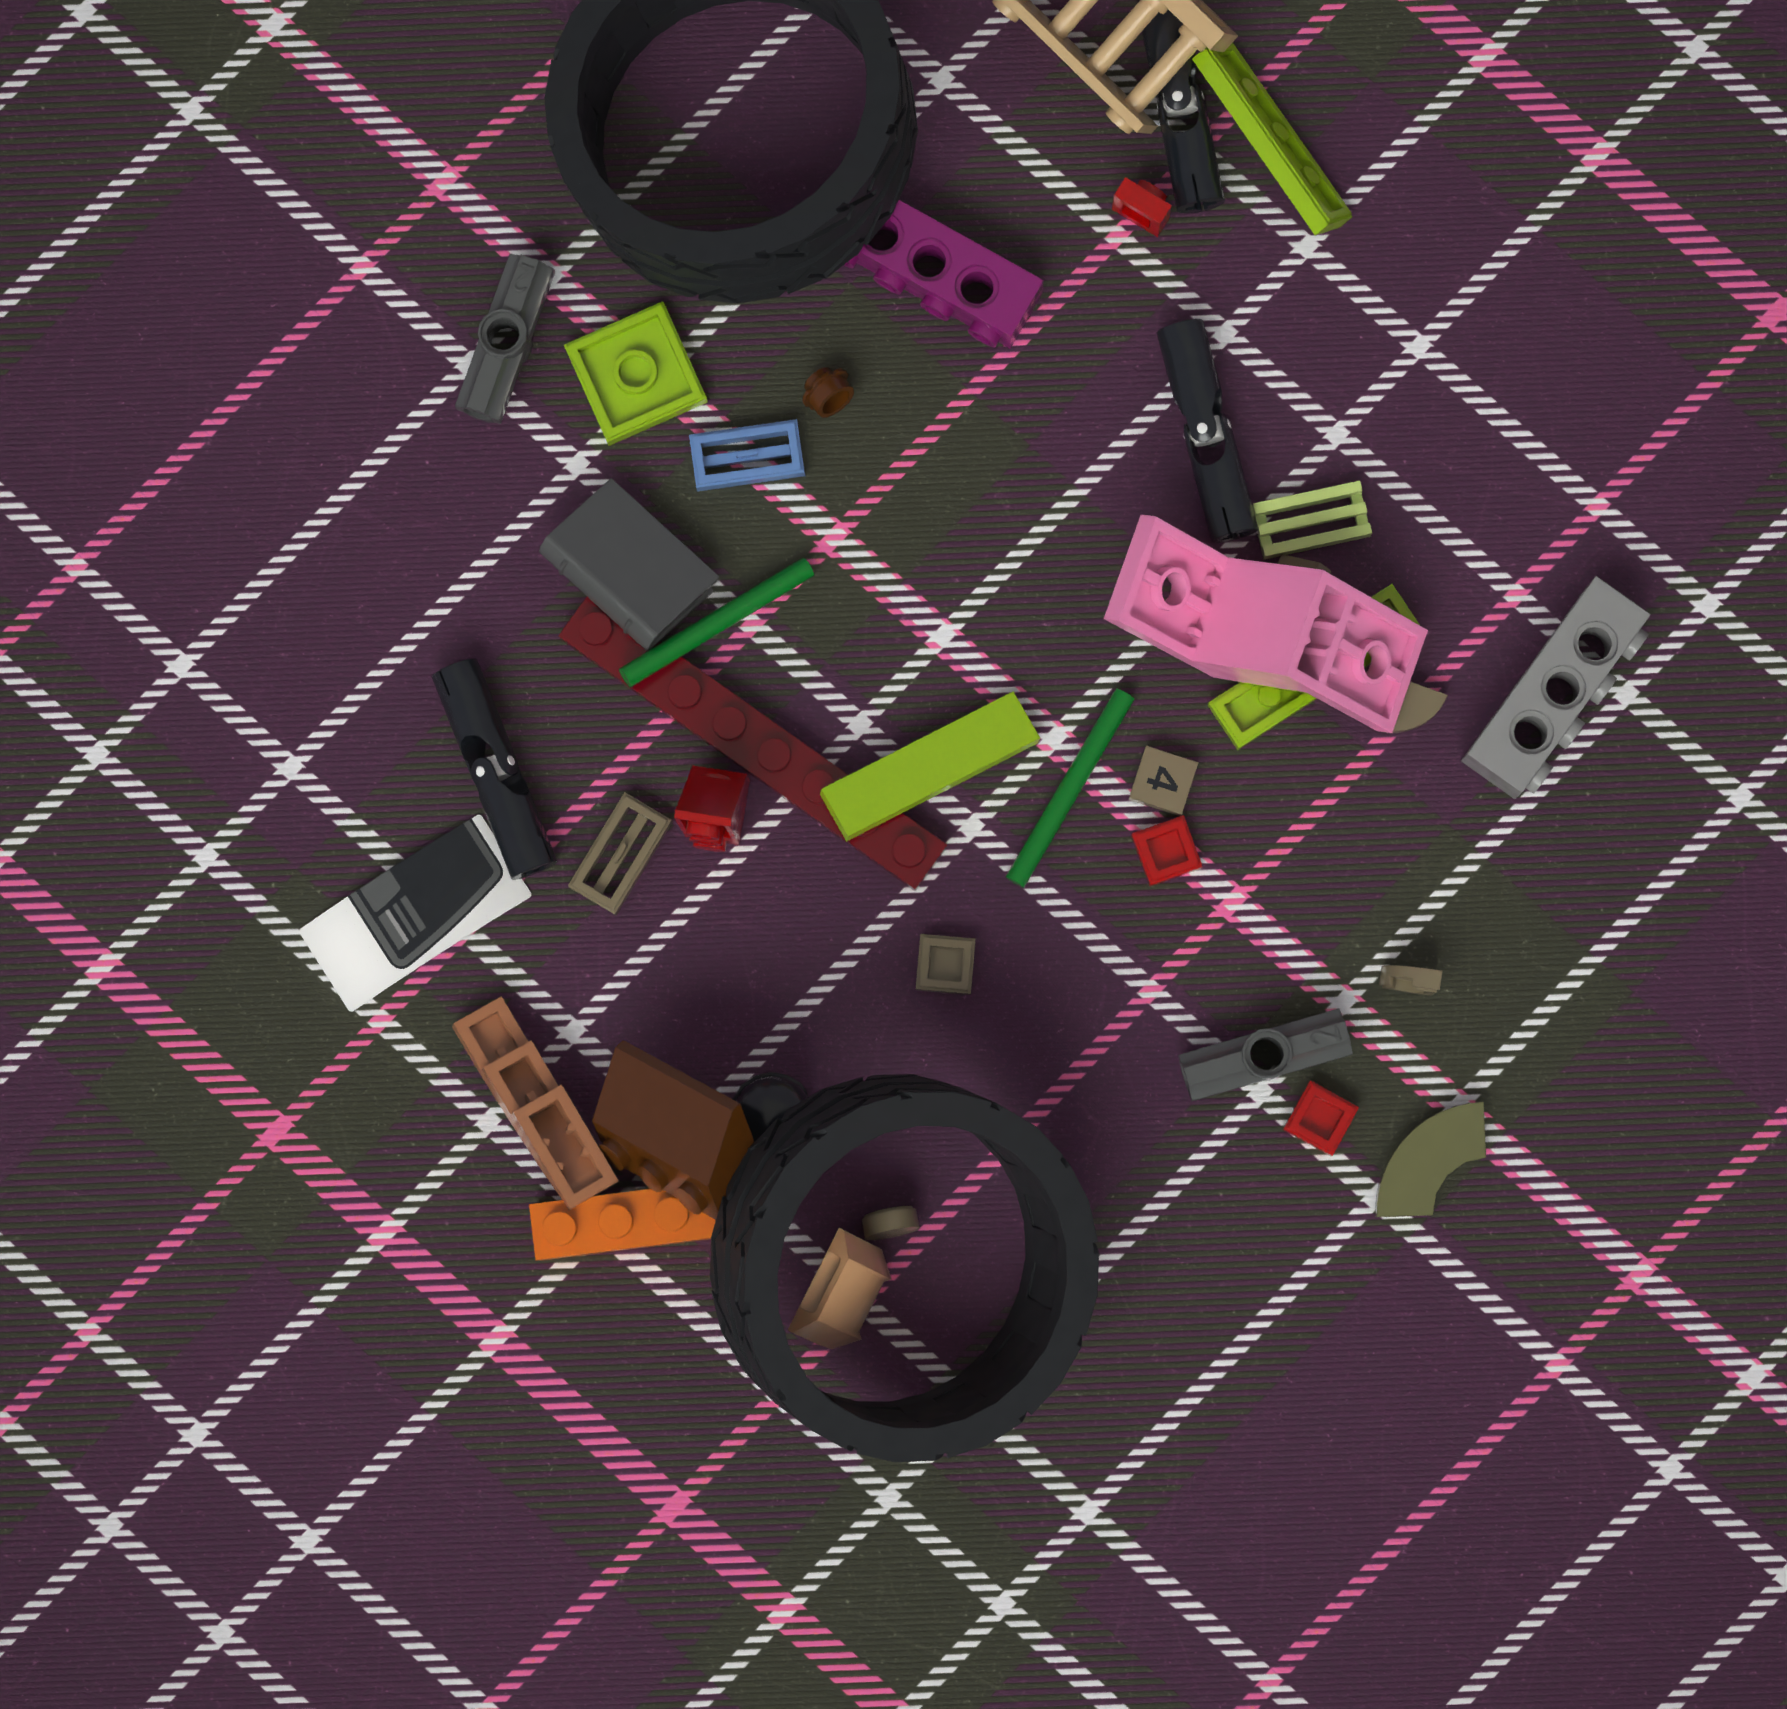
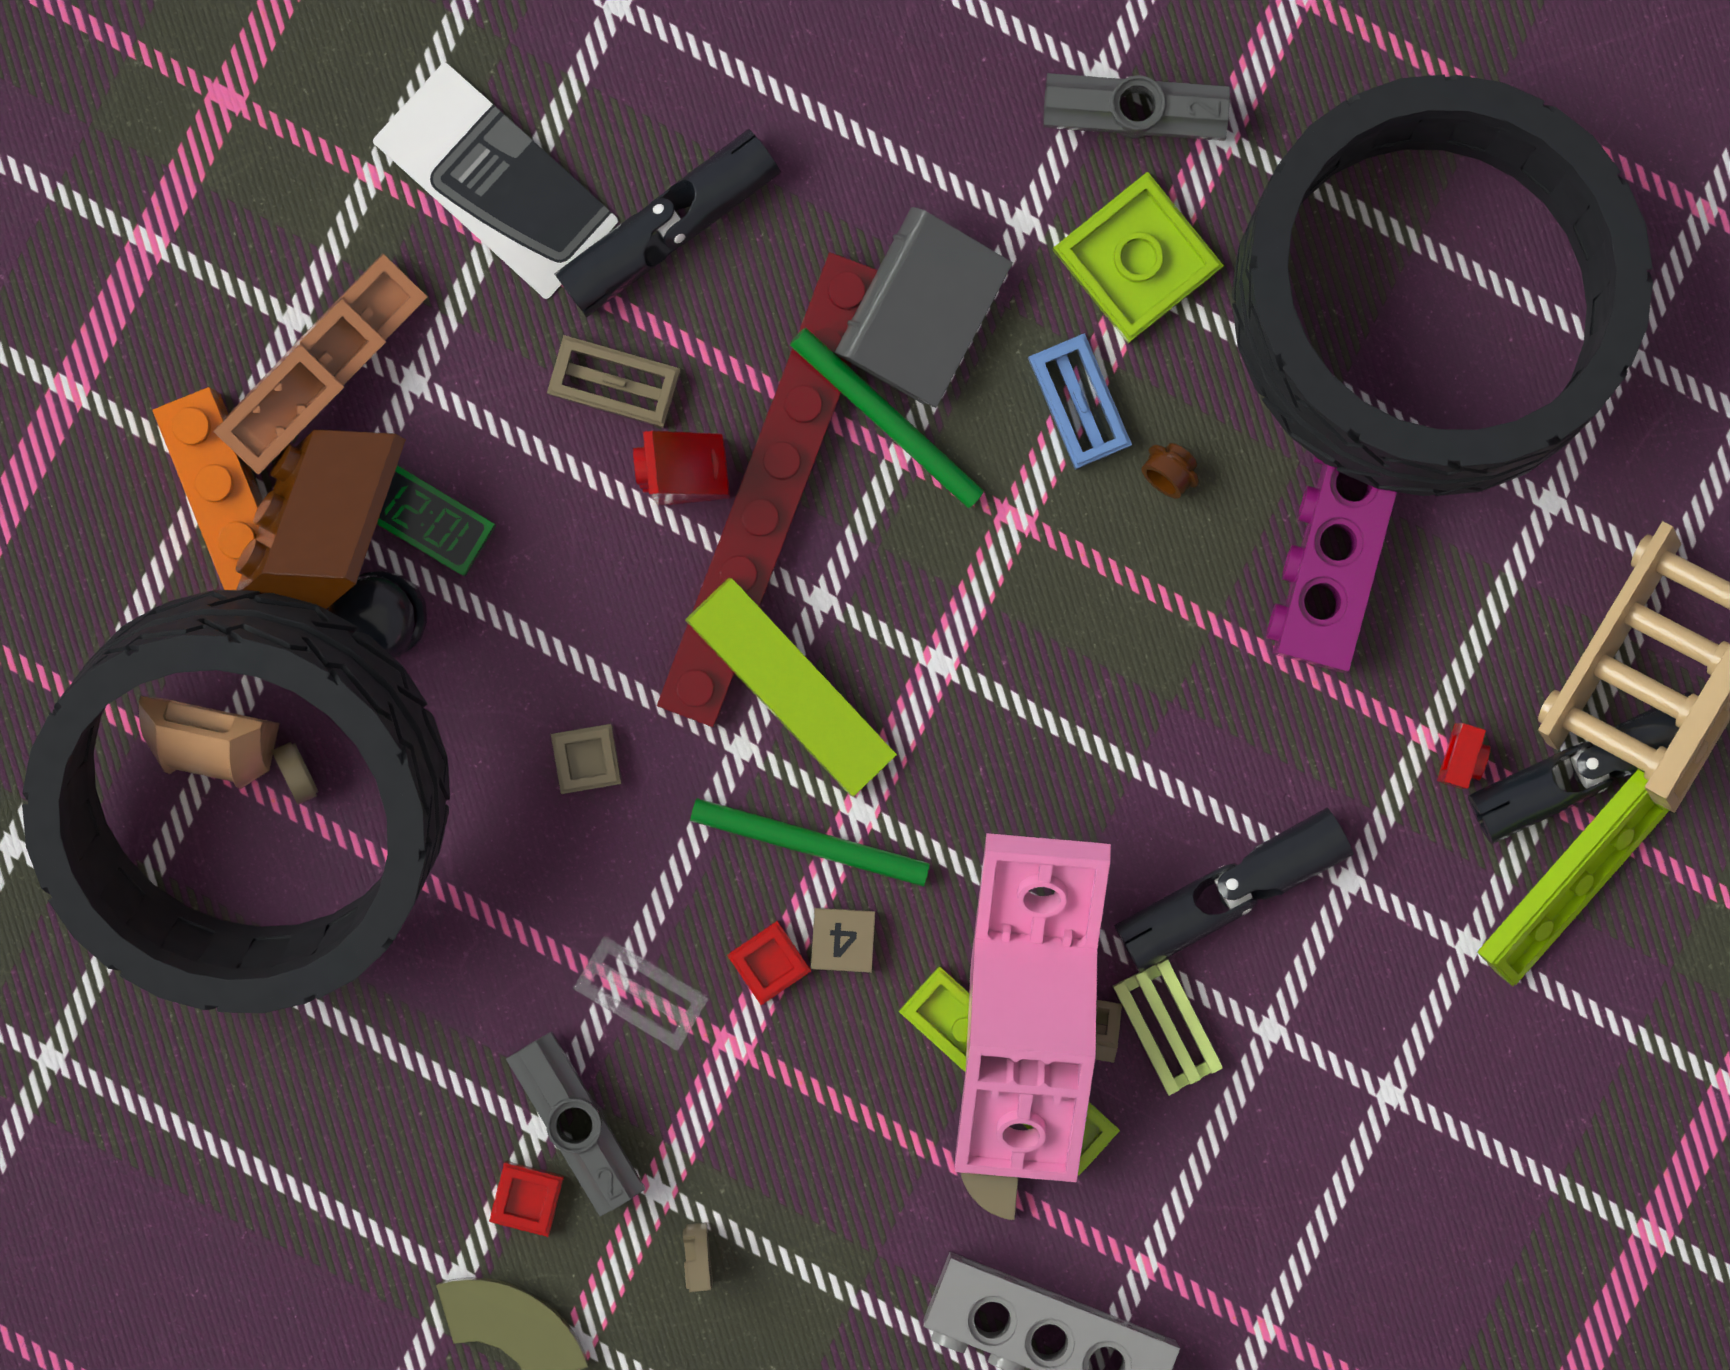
camera: 65 degrees right, 5 degrees up
(705, 1038) = (434, 522): none -> black tile
(1130, 1003) = (636, 1018): none -> clear tile

